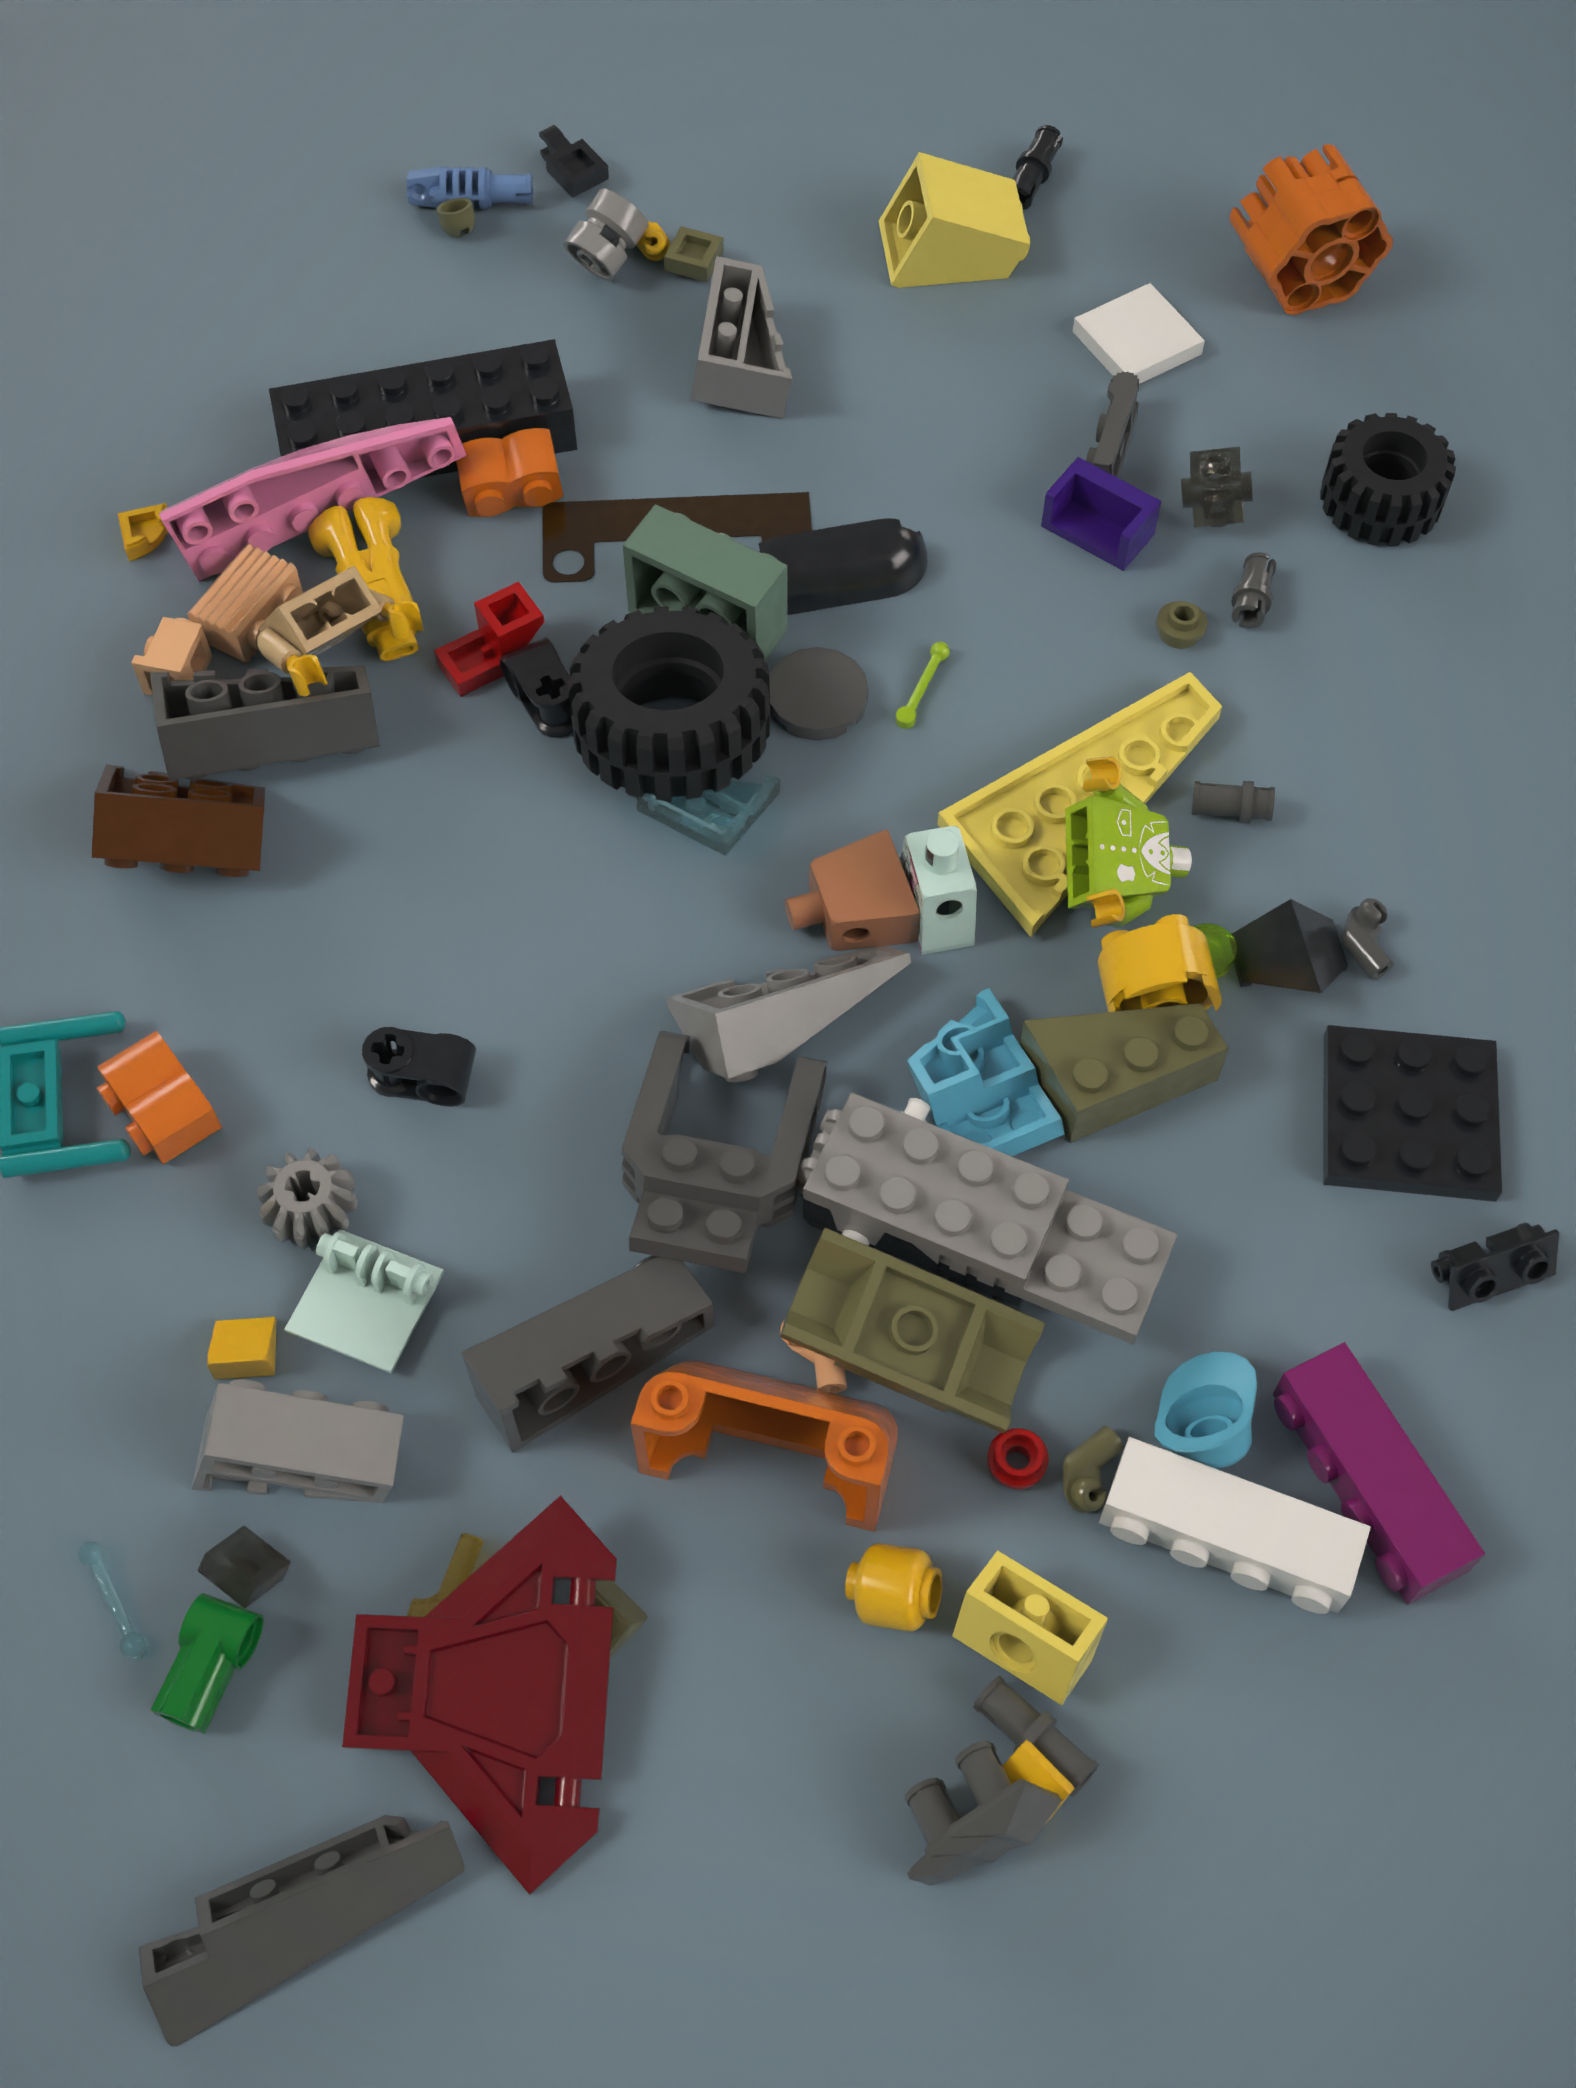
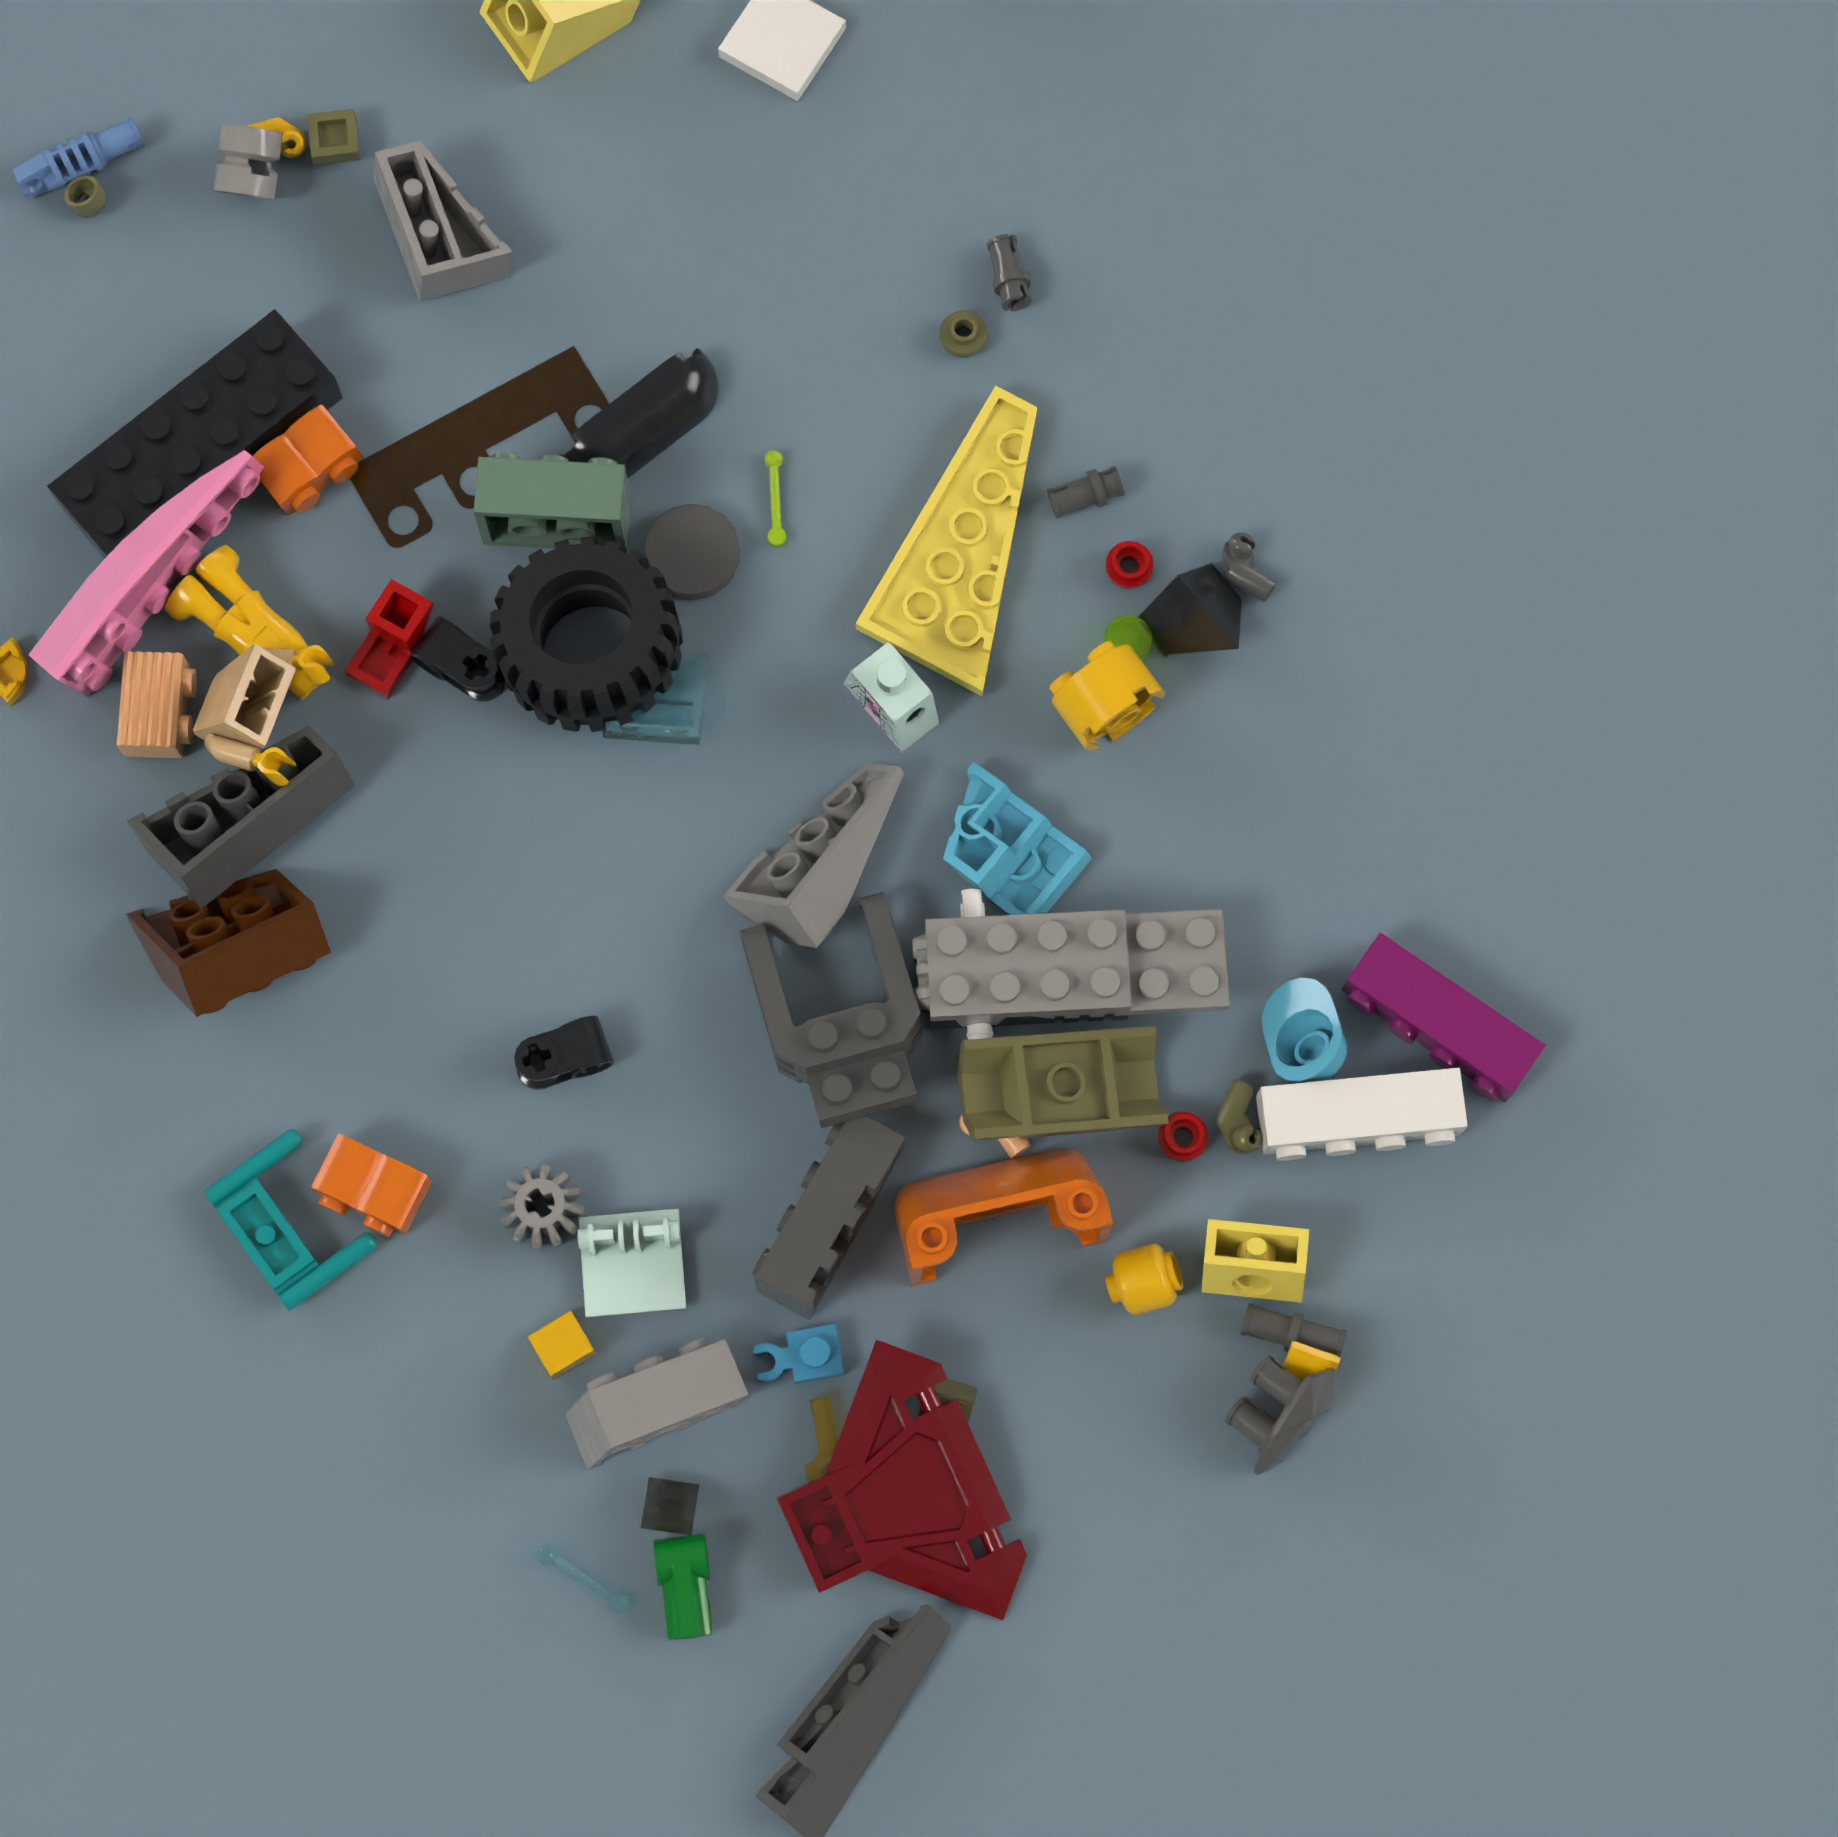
camera: 30 degrees left, 15 degrees up
(175, 648) = (124, 788): light nougat brick -> none
(487, 1488) = (810, 1354): none -> dark azure plate
(573, 165) = (161, 85): black plate -> none
(858, 897) = (830, 732): nougat torso -> none
(1100, 513) = (844, 256): dark purple panel -> none
(1117, 425) = (814, 162): dark grey hinge -> none
(1117, 850) = (1023, 599): lime torso -> none
(1121, 1061) = (1108, 779): olive wedge -> none
(1216, 487) = (932, 185): clear smoke brick -> none
(1246, 871) = (1129, 551): none -> red plate
(1387, 479) = (1073, 72): black tyre -> none
(1411, 1113) = (1344, 706): black plate -> none
(1514, 1260) = (1475, 790): black hinge -> none

